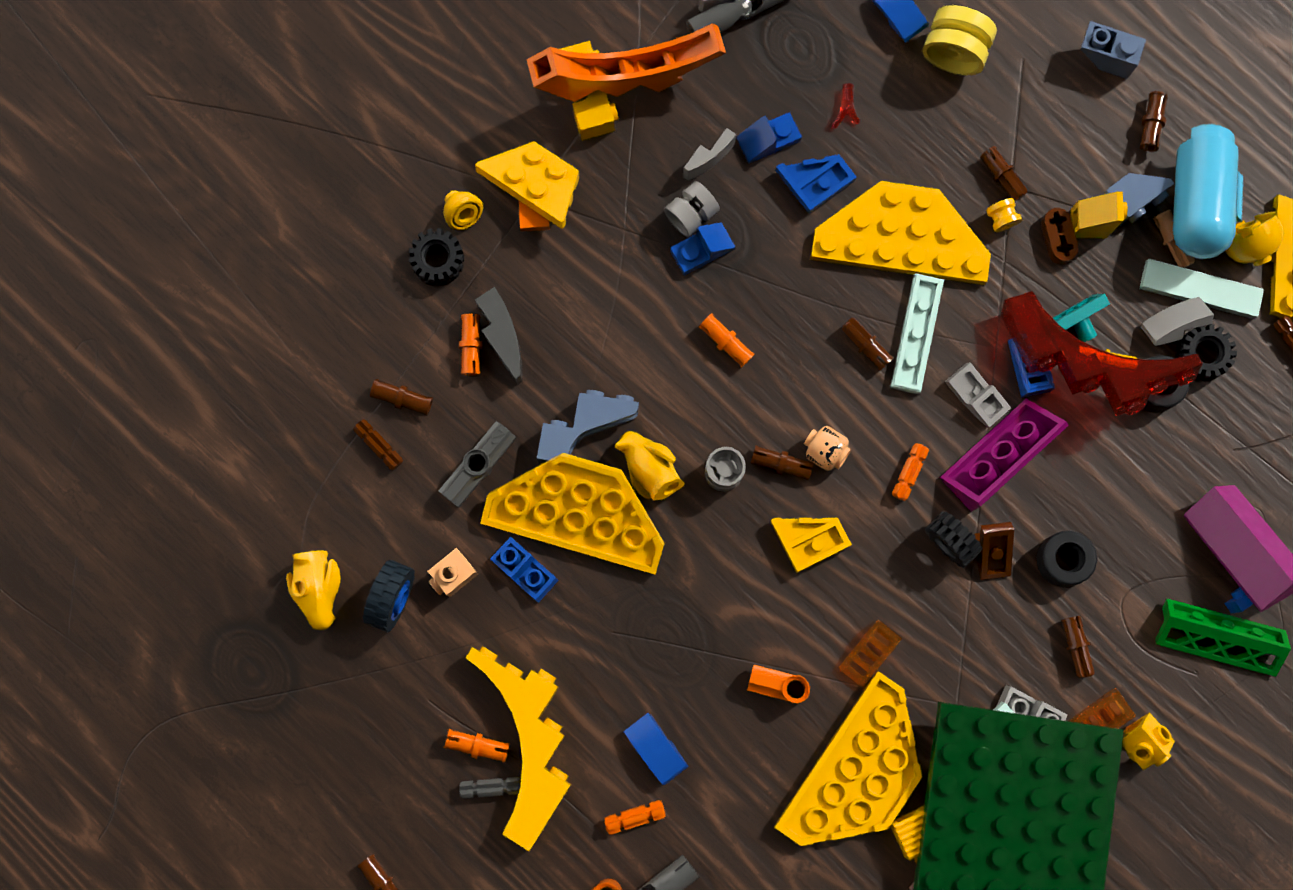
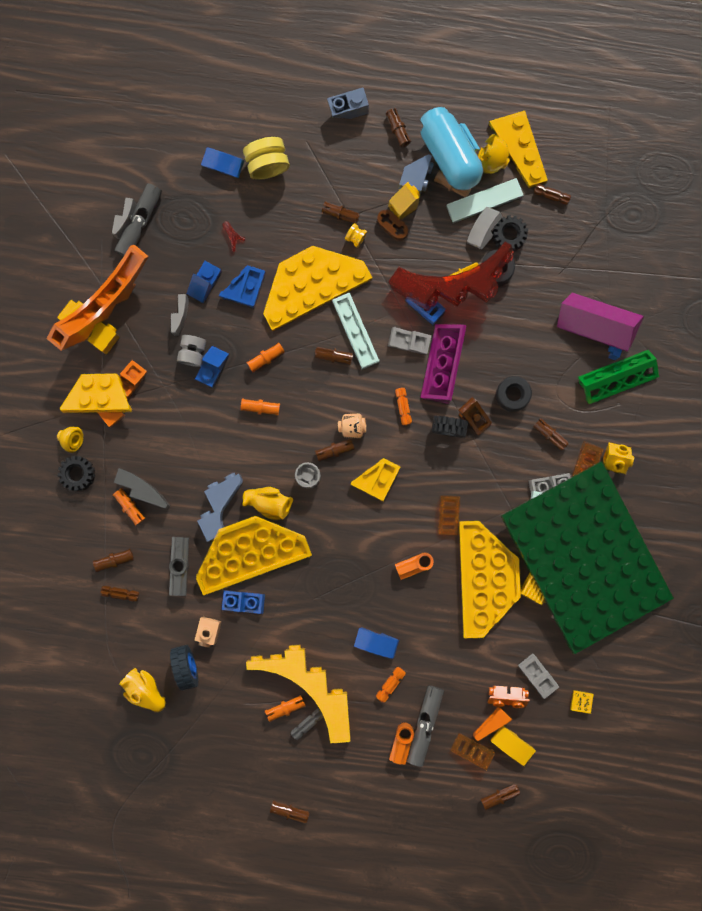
camera: 30 degrees left, 5 degrees up
(593, 189) = (132, 377): none -> orange slope
(778, 284) = (265, 357): none -> orange pin
(1079, 316) = (431, 262): teal tile -> none

